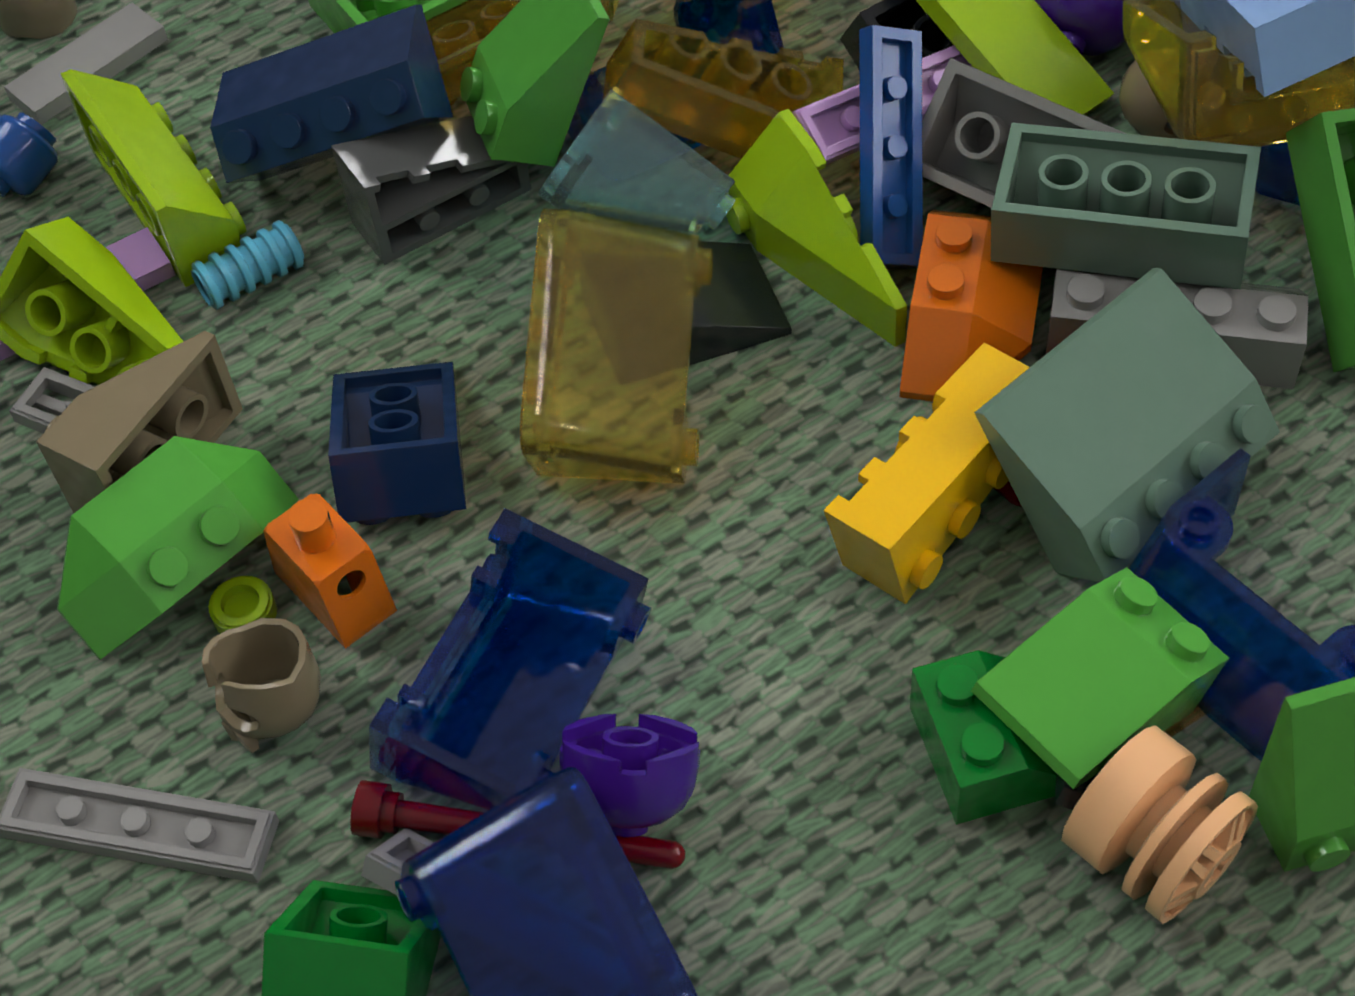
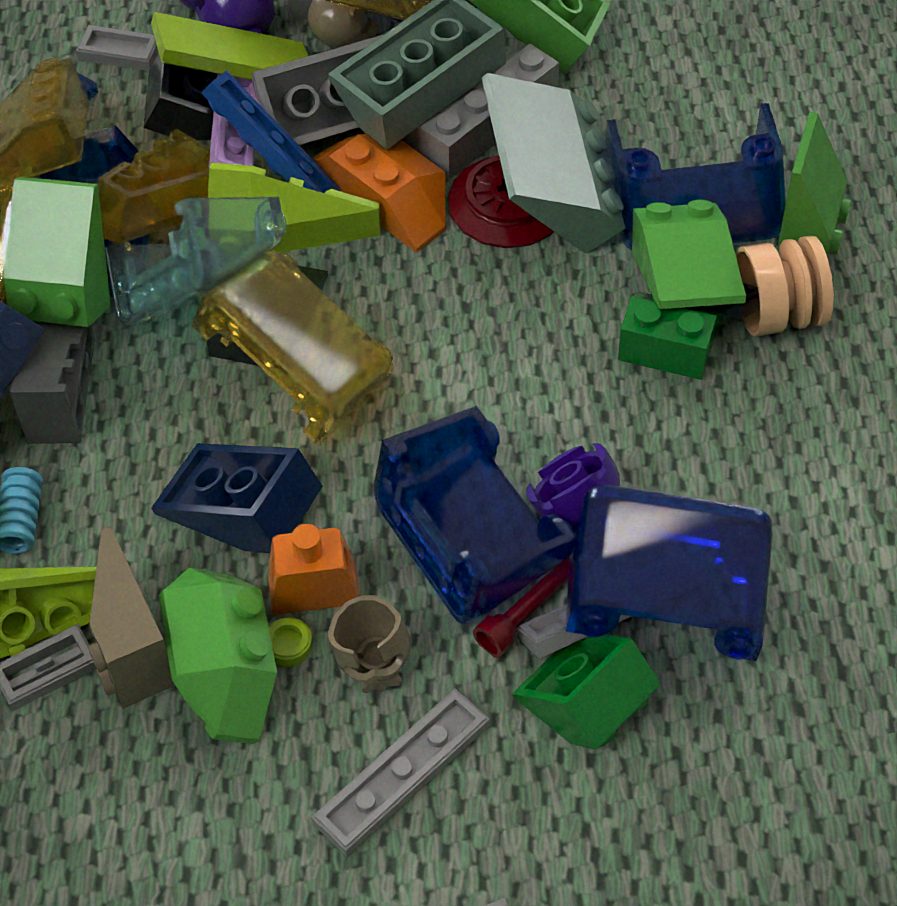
camera: 60 degrees left, 0 degrees up
(928, 487) = (506, 253): yellow wedge -> none

